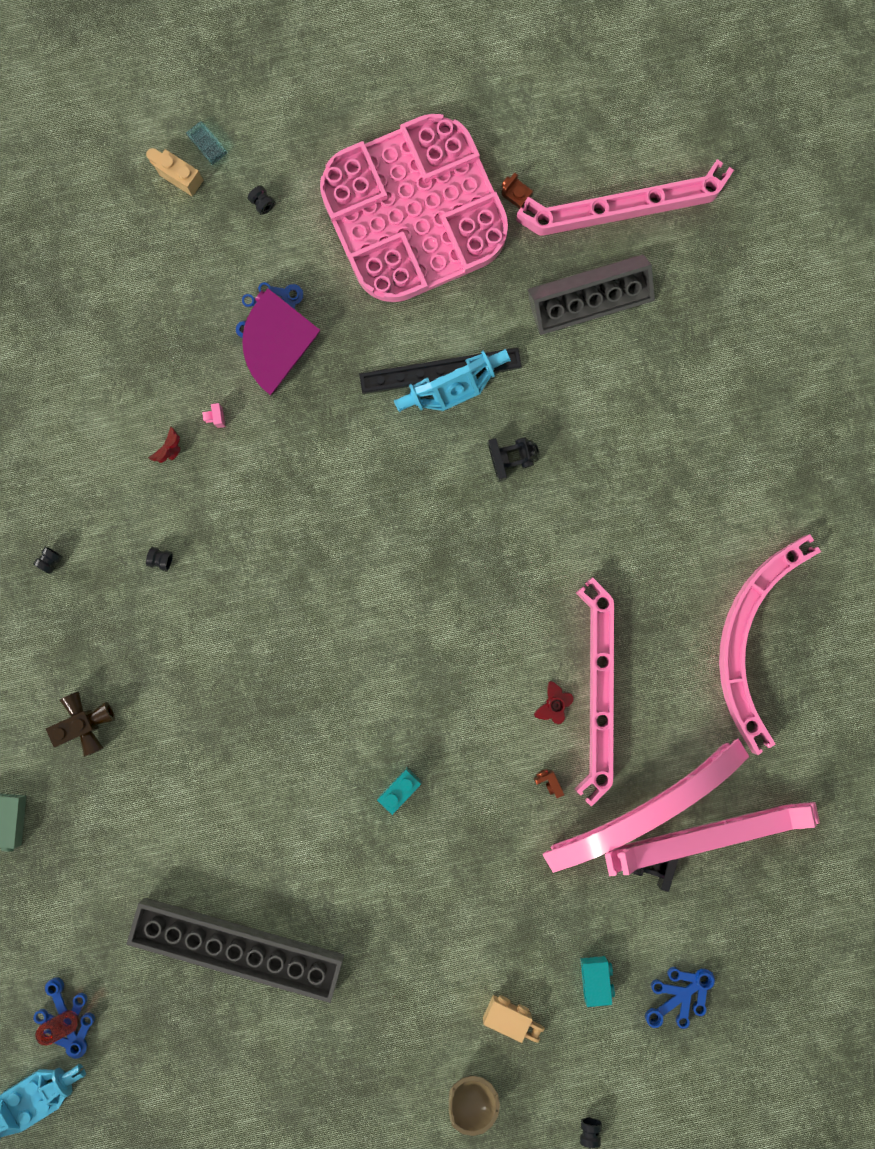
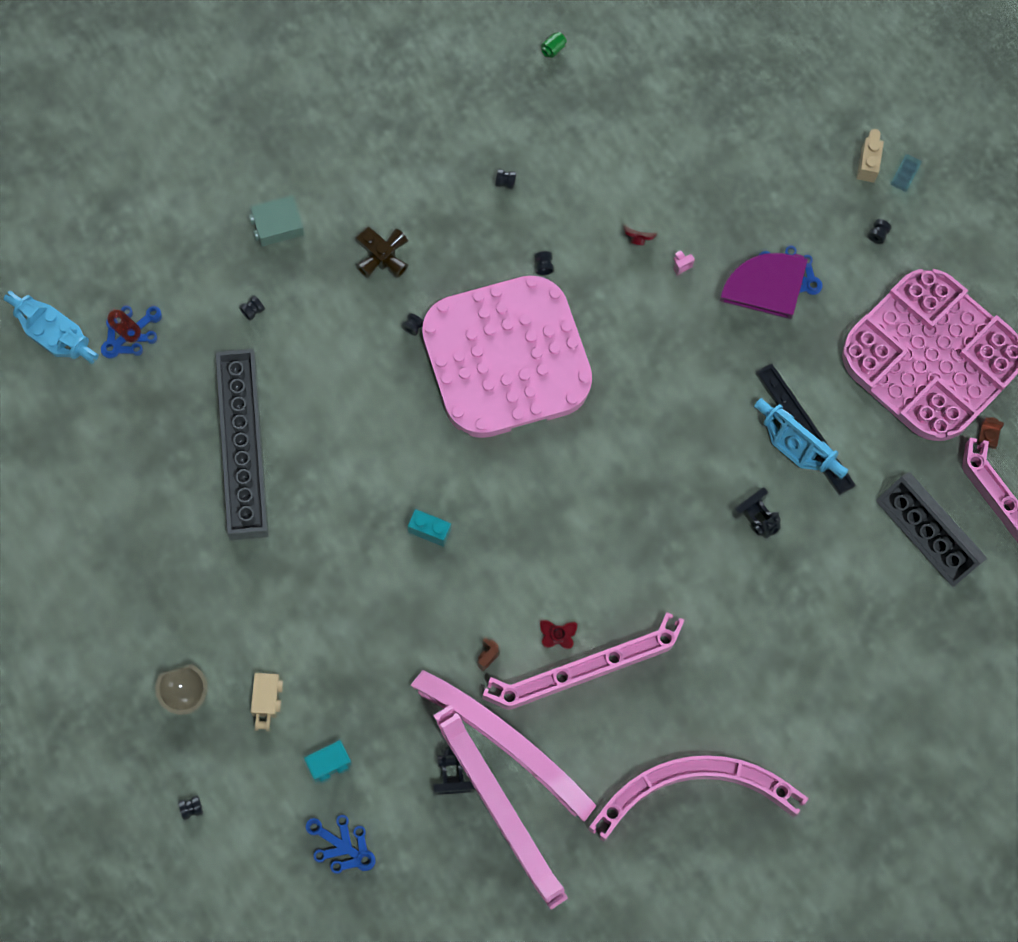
camera: 60 degrees right, 15 degrees down
(88, 883) = (252, 307): none -> black wheel
(173, 722) = (412, 324): none -> black wheel
(244, 639) = (506, 356): none -> bright pink plate

